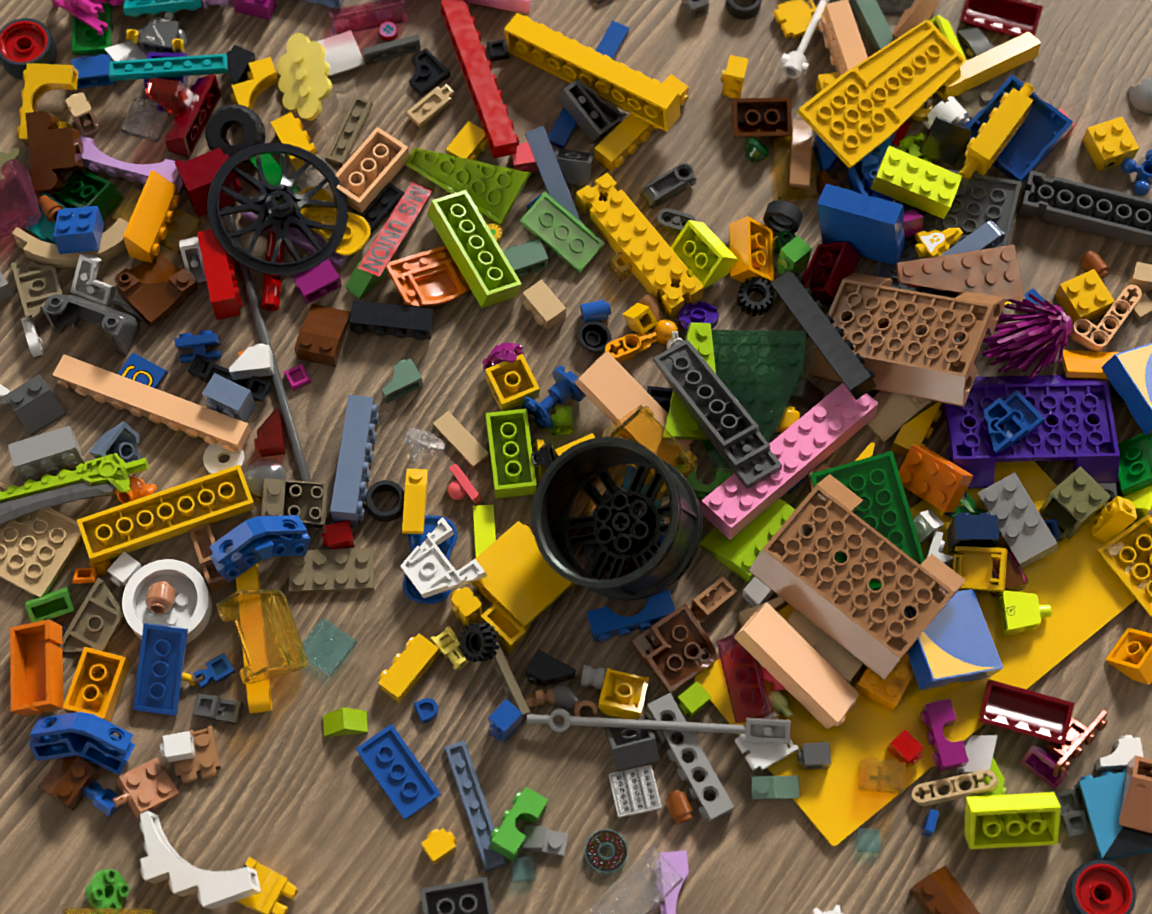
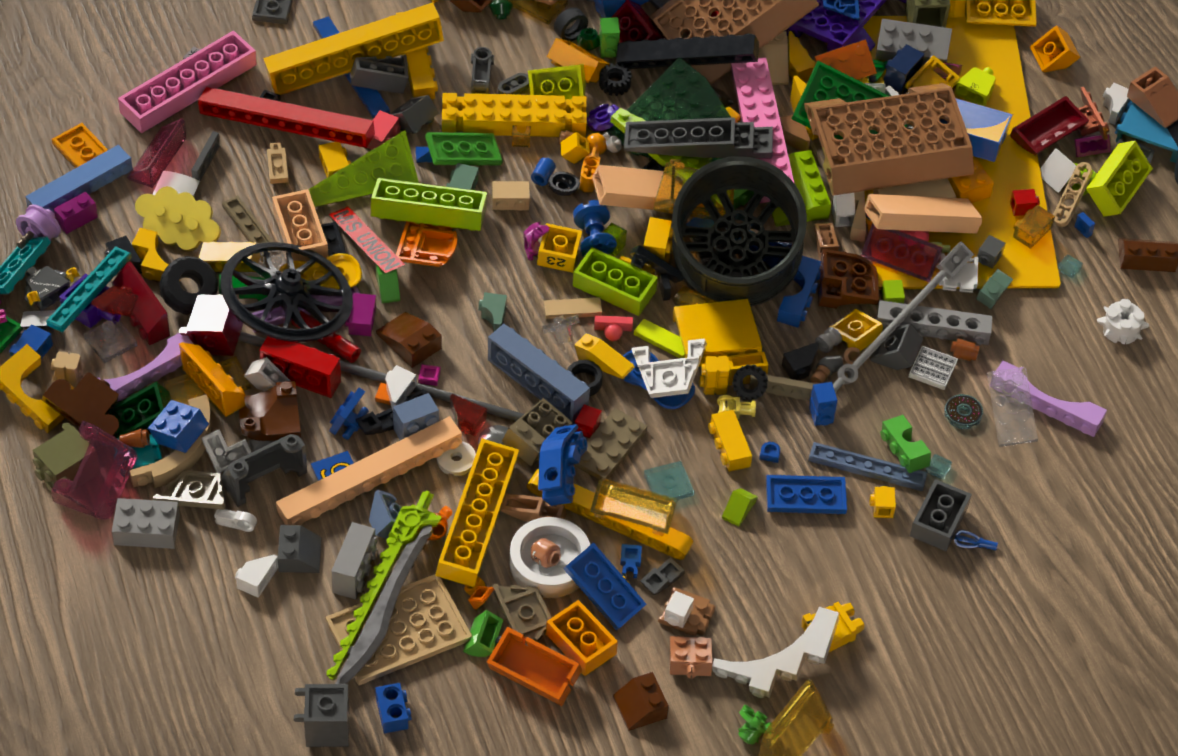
camera: 55 degrees left, 15 degrees down
(82, 736) = (618, 664): blue brick -> none
(102, 798) = (680, 687): blue plate -> none
(123, 569) = (497, 569): white brick -> none
(388, 31) = (184, 152): tile -> none
(391, 320) = (439, 287): black brick -> none
(428, 72) = (244, 149): black tile -> none
(545, 841) = (932, 437): light grey slope -> none
(550, 169) = (407, 117): sand blue tile -> none
(946, 754) = (1043, 183): magenta arch -> none

